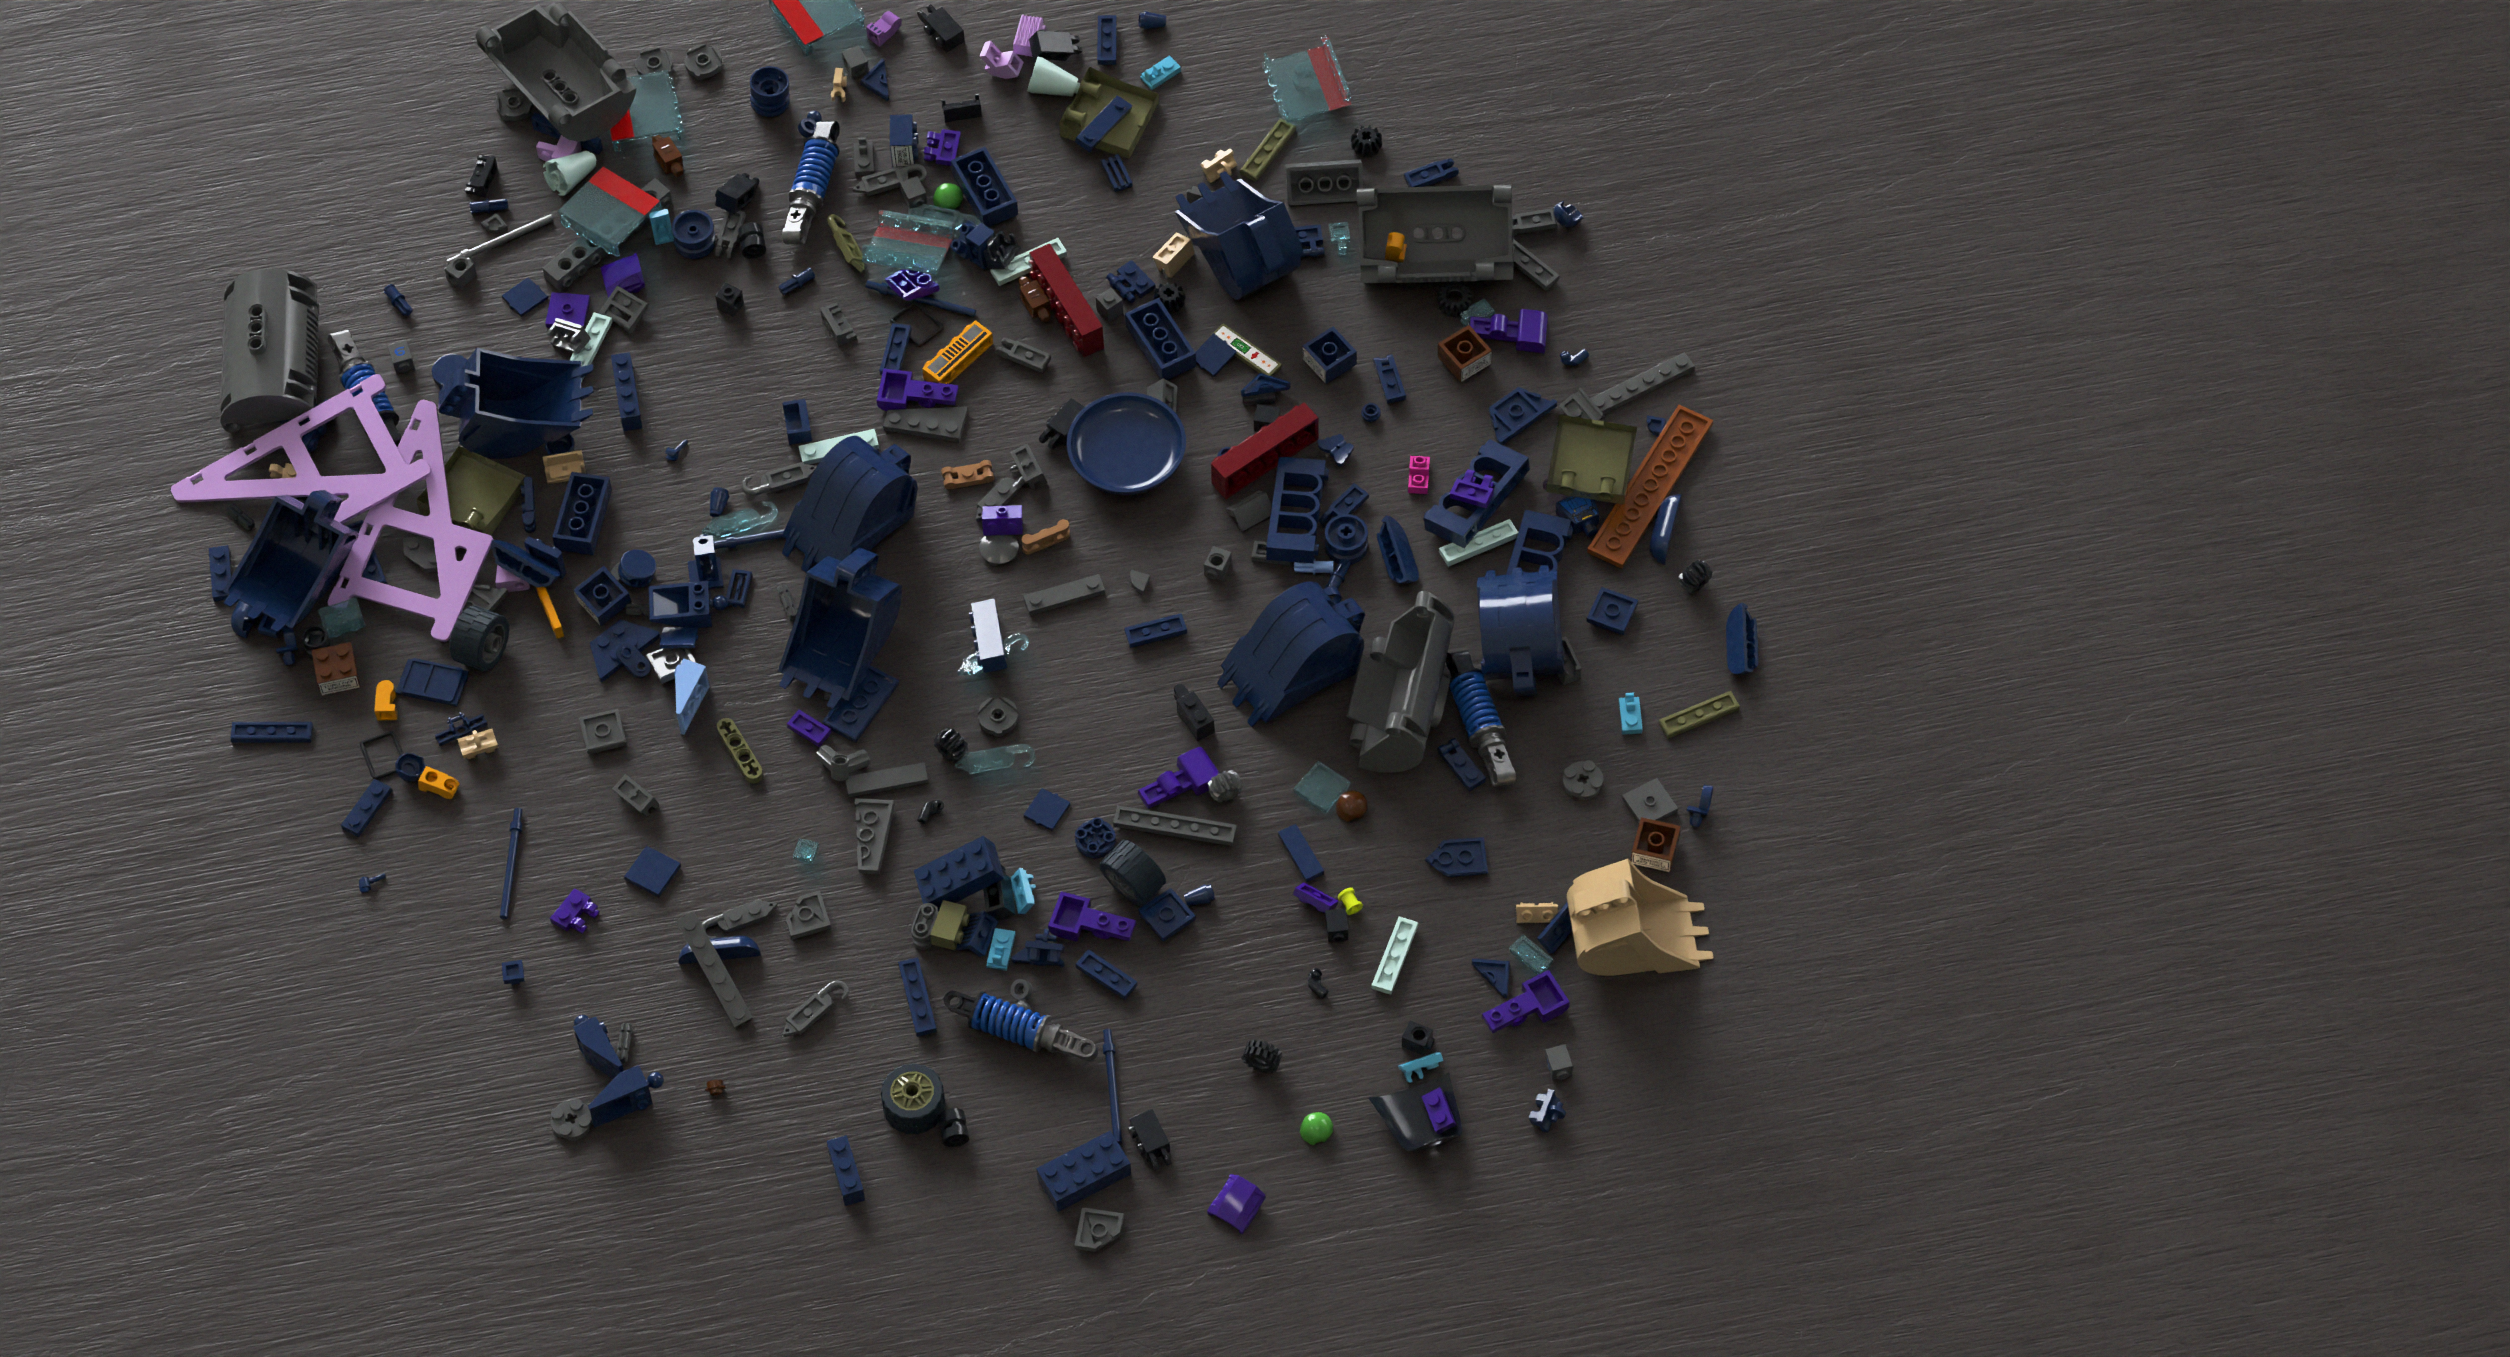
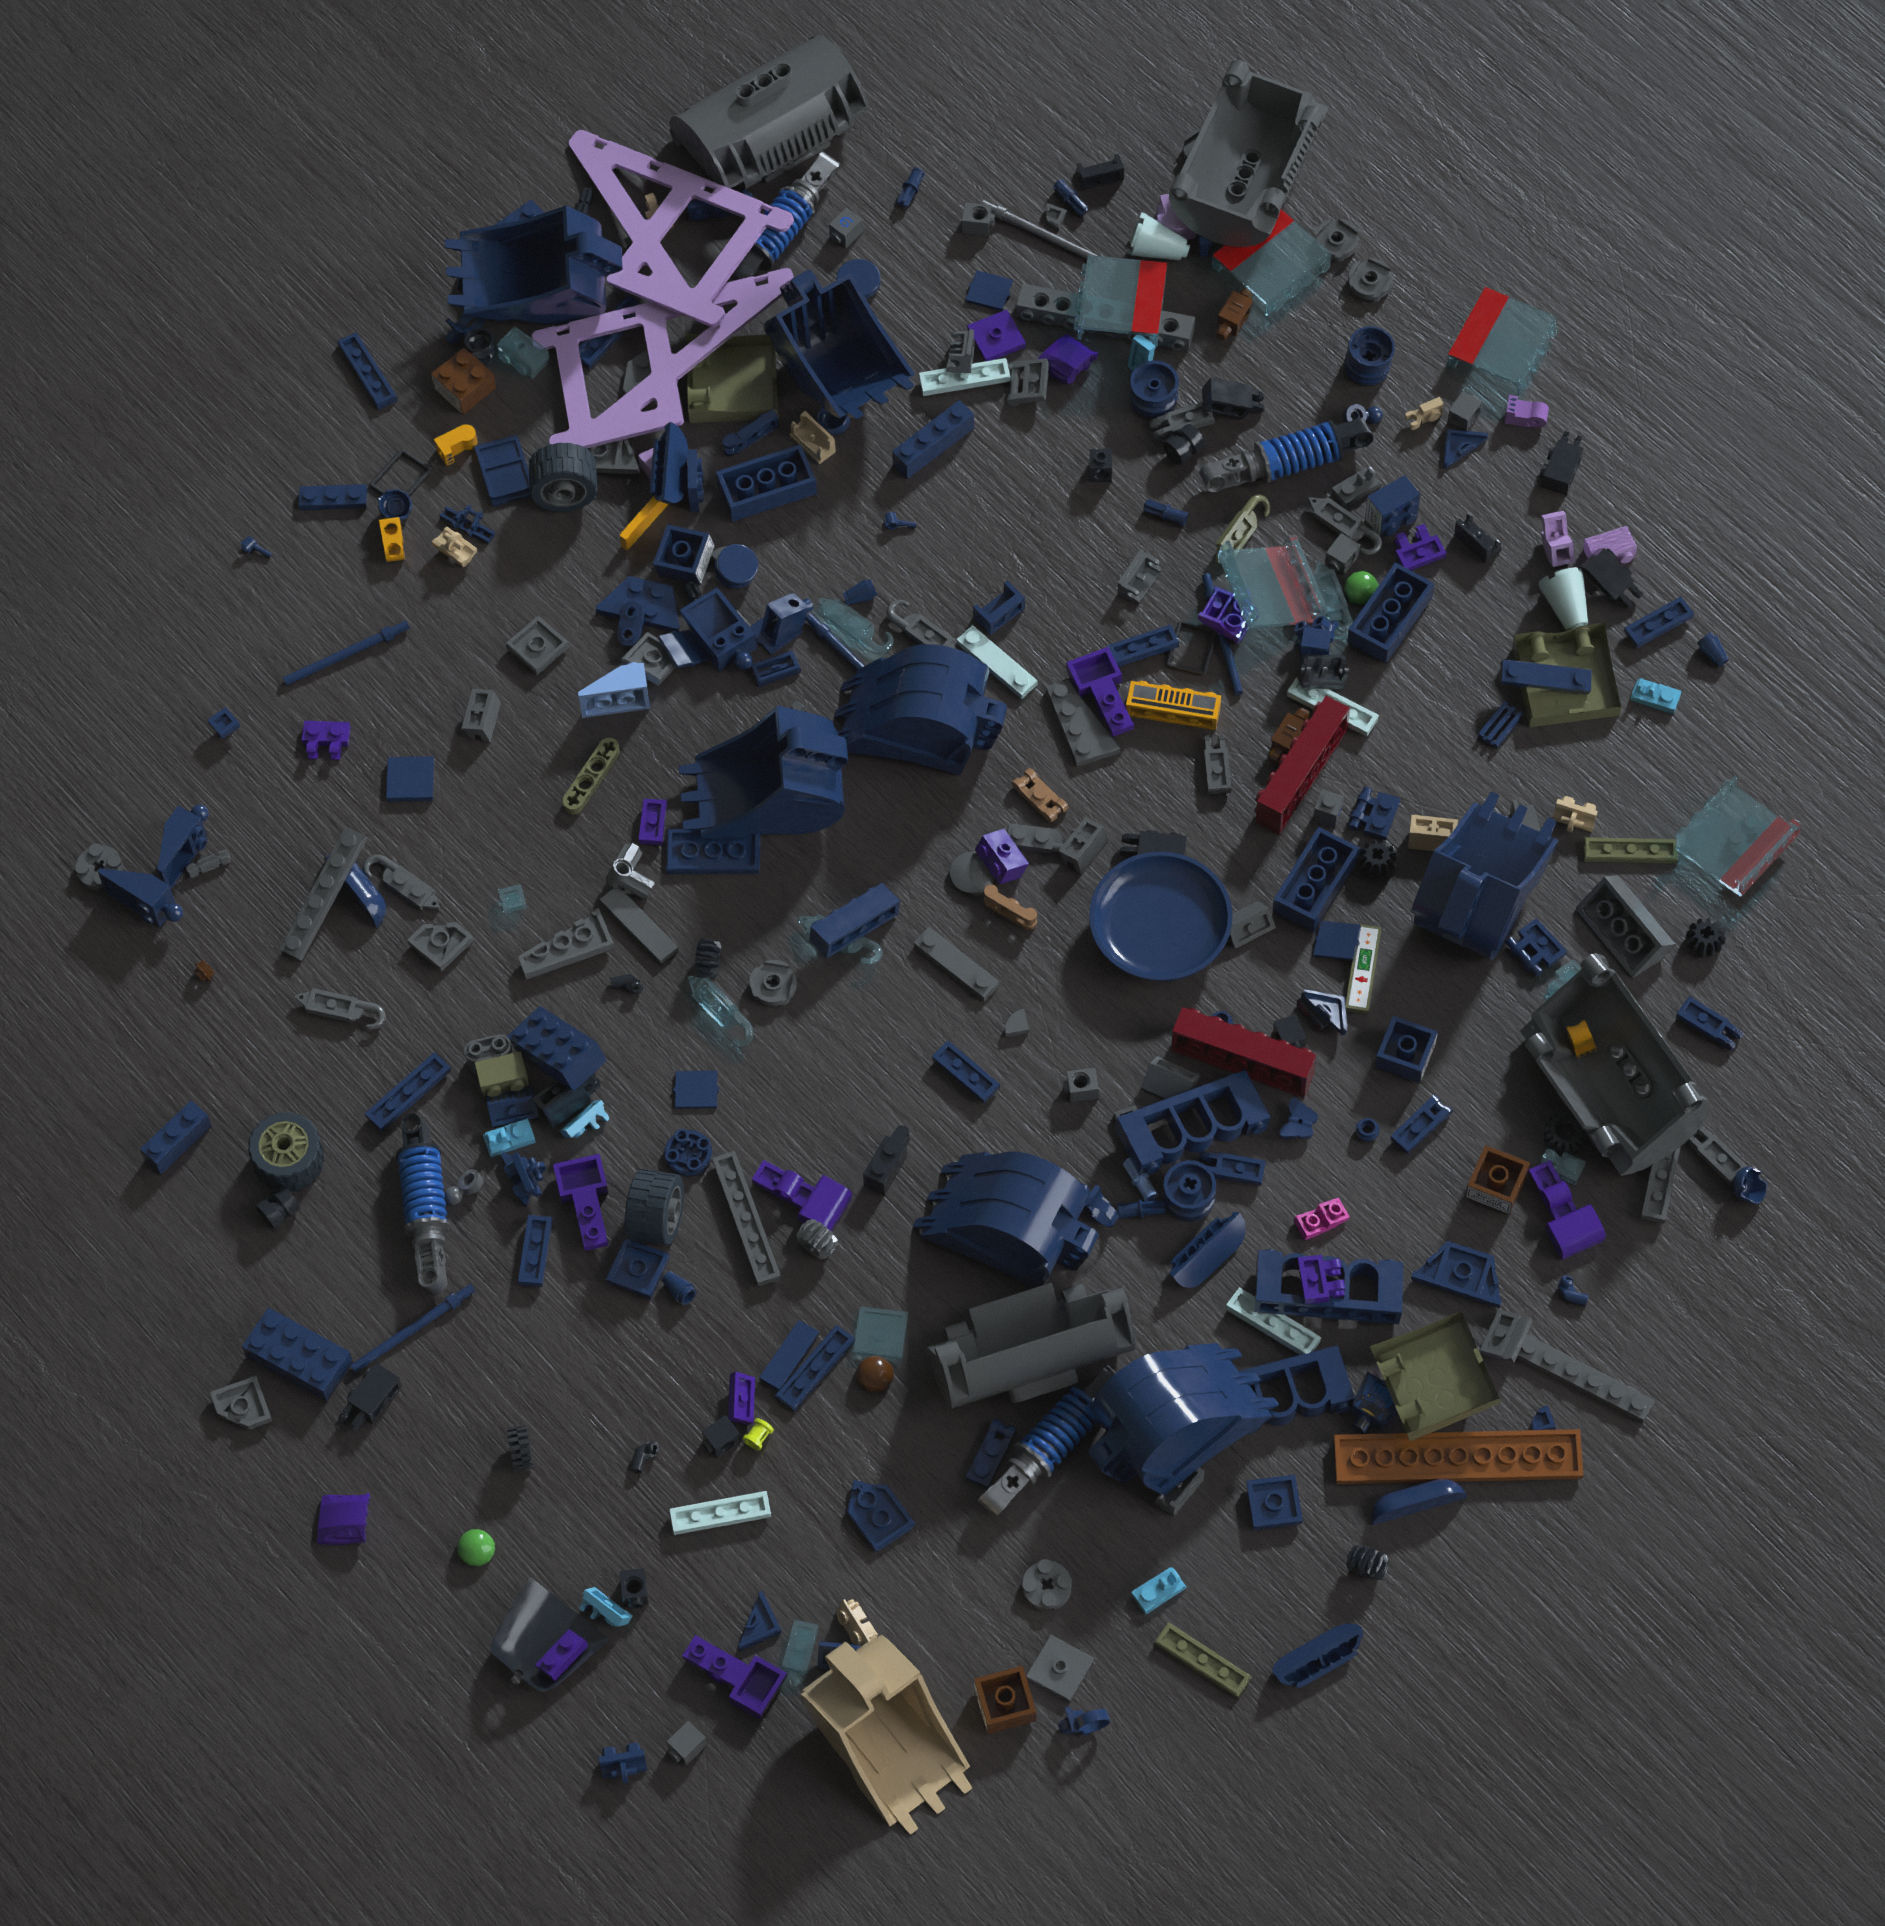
camera: 60 degrees right, 5 degrees up
(1321, 841) = (815, 1368): none -> dark blue tile

